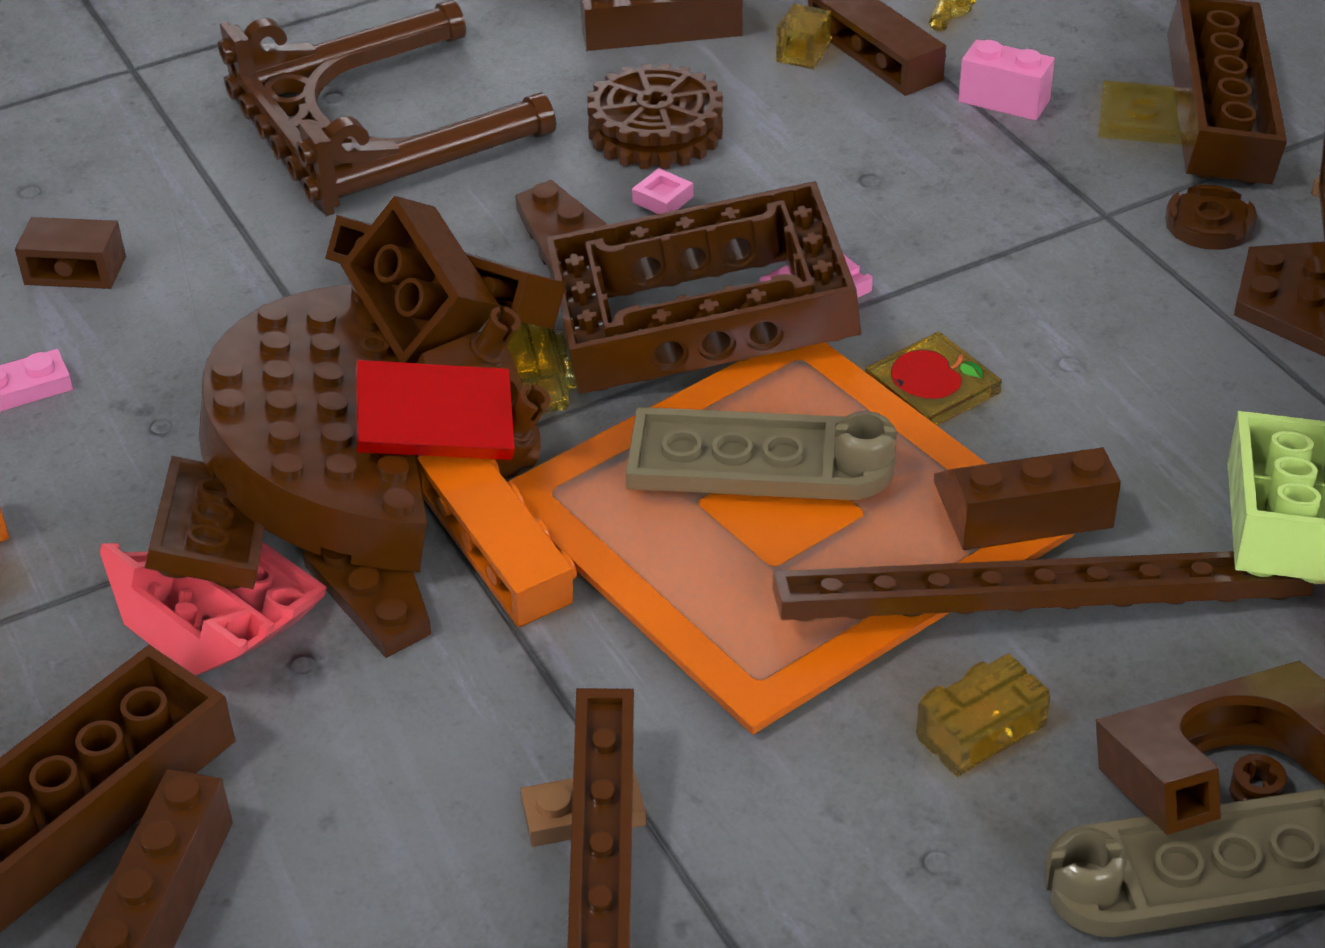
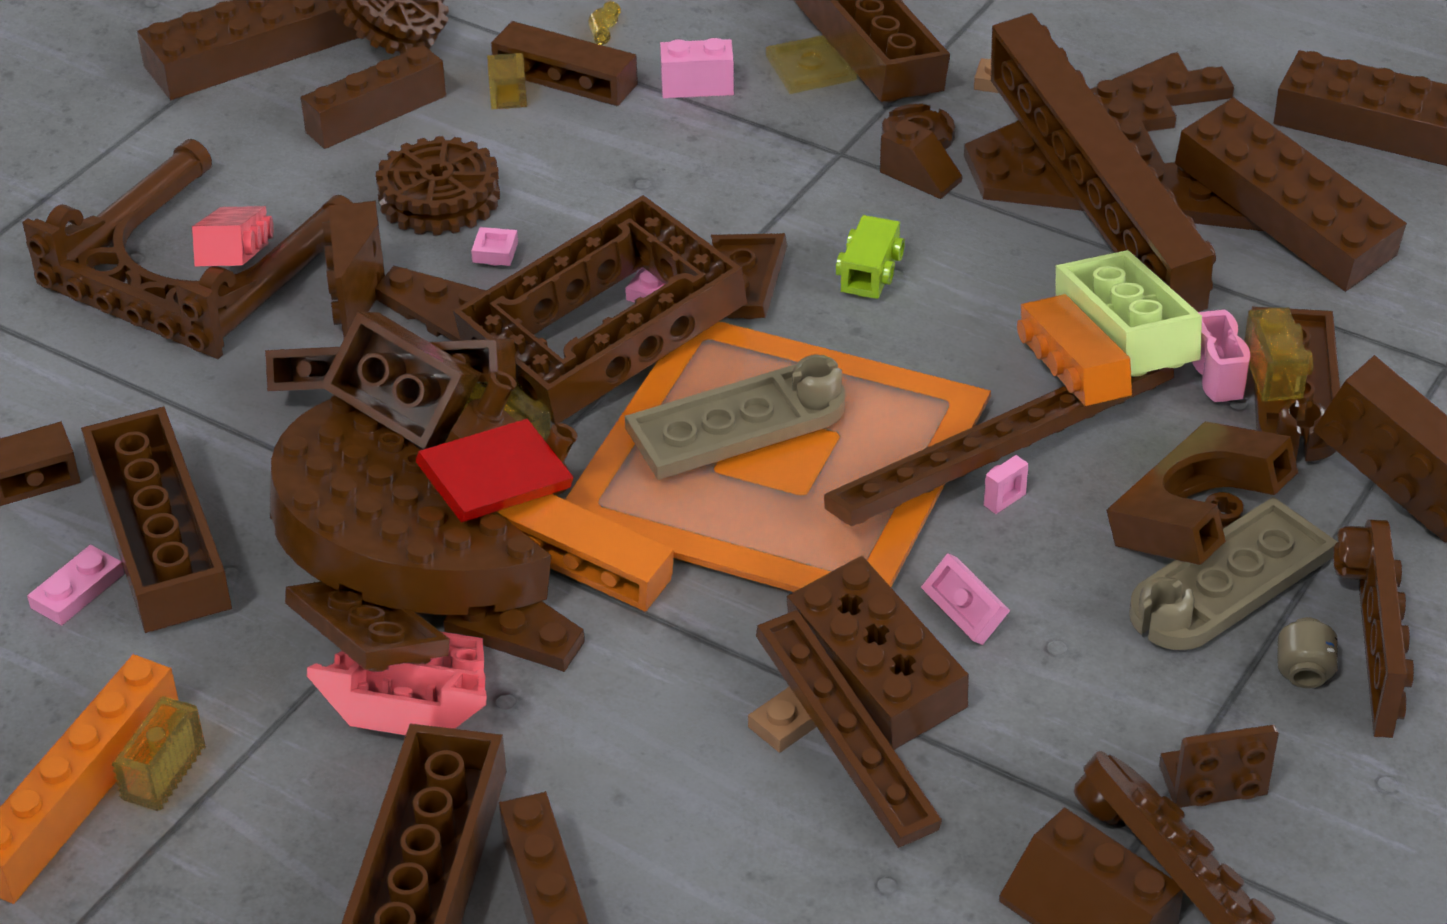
camera: 30 degrees left, 0 degrees up
(119, 346) = (156, 519): none -> reddish brown brick
(399, 96) = (231, 235): none -> coral brick
(497, 161) = (352, 259): none -> reddish brown slope
(702, 779) = (883, 651): none -> reddish brown brick
(859, 758) = (965, 599): none -> bright pink plate
(903, 304) = (760, 262): none -> reddish brown wing
(936, 378) = (812, 317): tile -> none
(982, 713) = (1022, 538): clear yellow brick -> none
(1012, 635) = (1005, 484): none -> bright pink plate
(1030, 497) = (951, 377): reddish brown slope -> none
(1041, 331) = (870, 256): none -> lime brick
(1180, 246) = (918, 159): none -> reddish brown slope
(1194, 518) = (1075, 350): none -> orange brick

